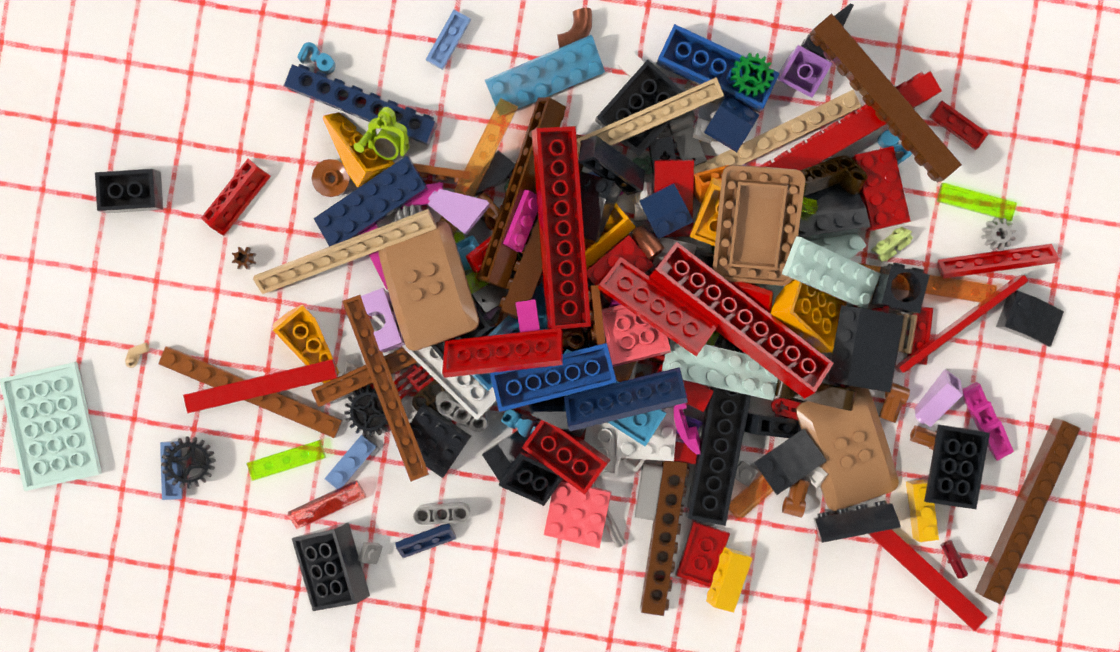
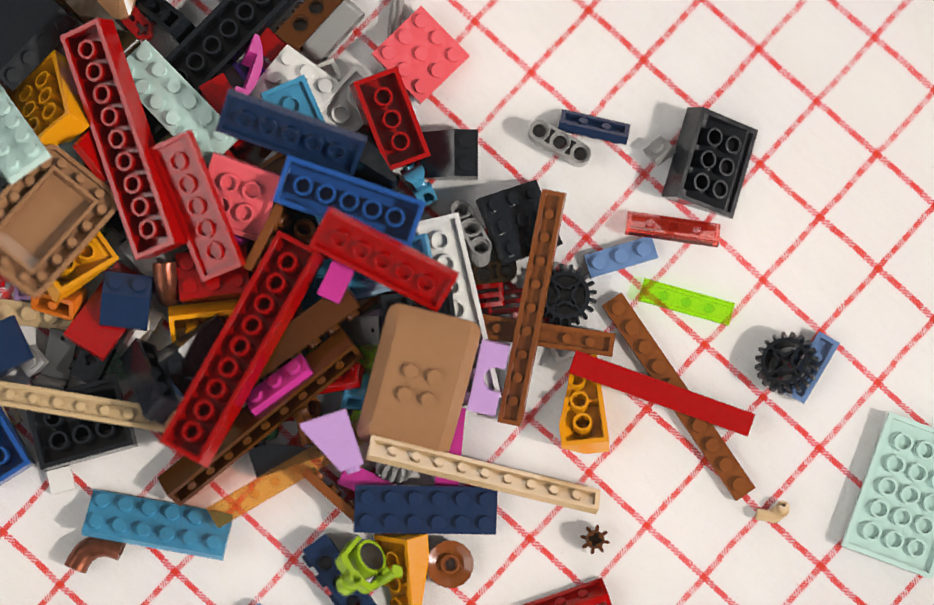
camera: 150 degrees left, 5 degrees down
(530, 479) = (442, 117): black slope -> none

